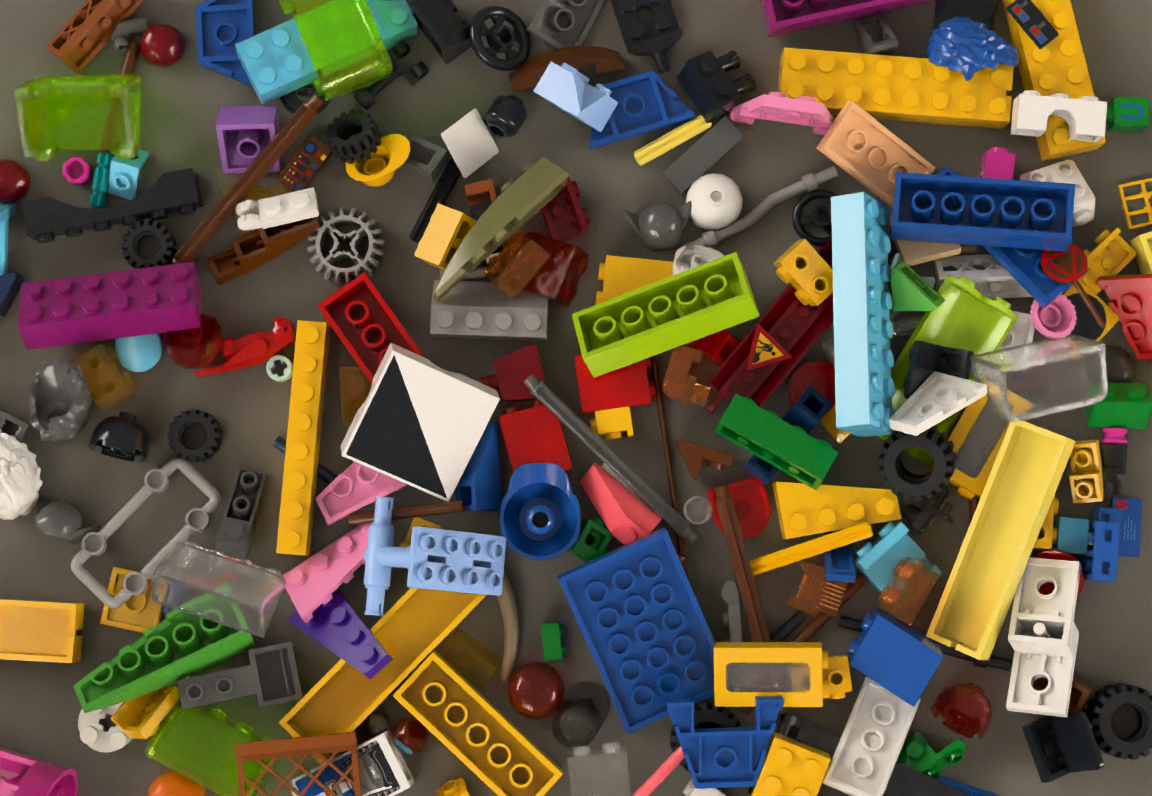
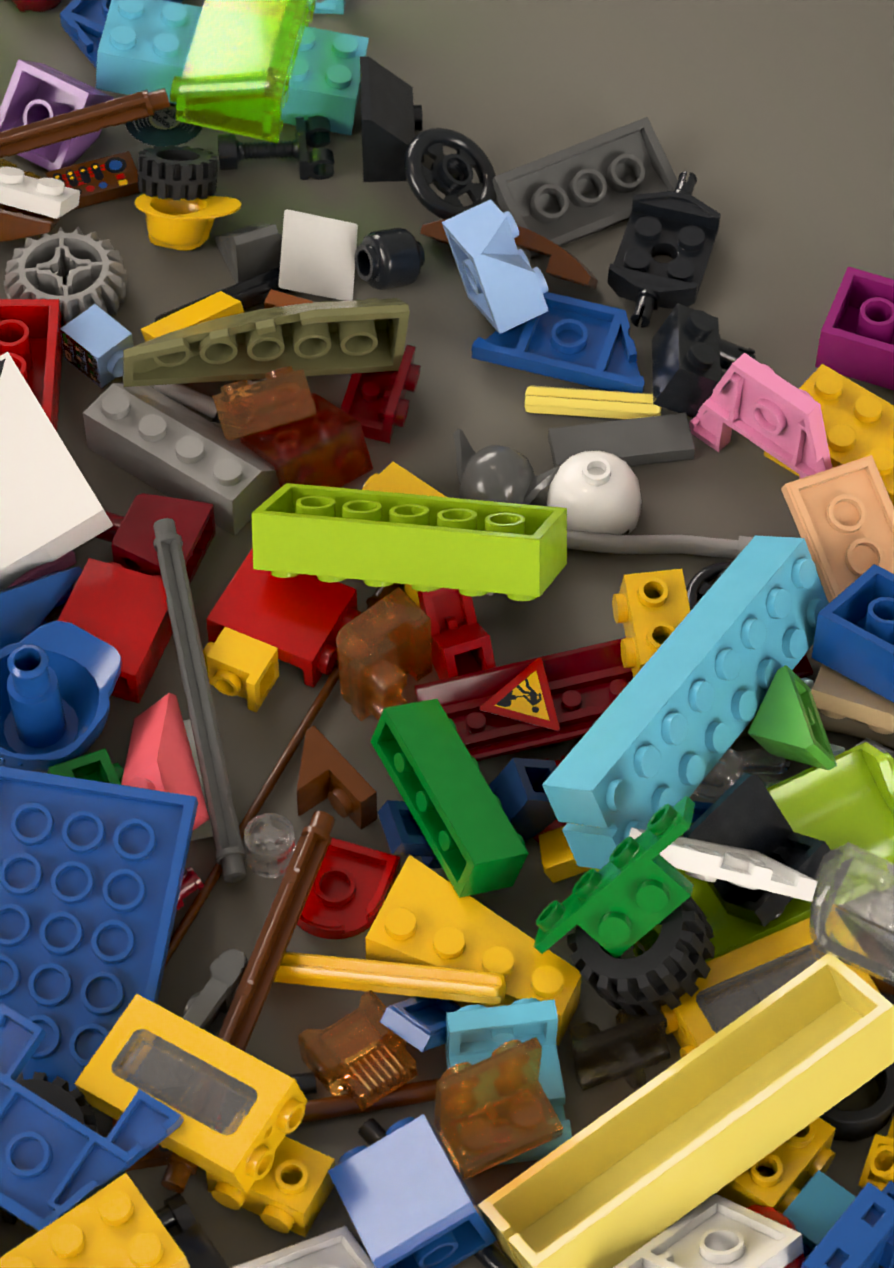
camera: 35 degrees right, 30 degrees down
(396, 276) = (96, 345): none -> light blue brick
(906, 454) = (628, 892): none -> green bracket

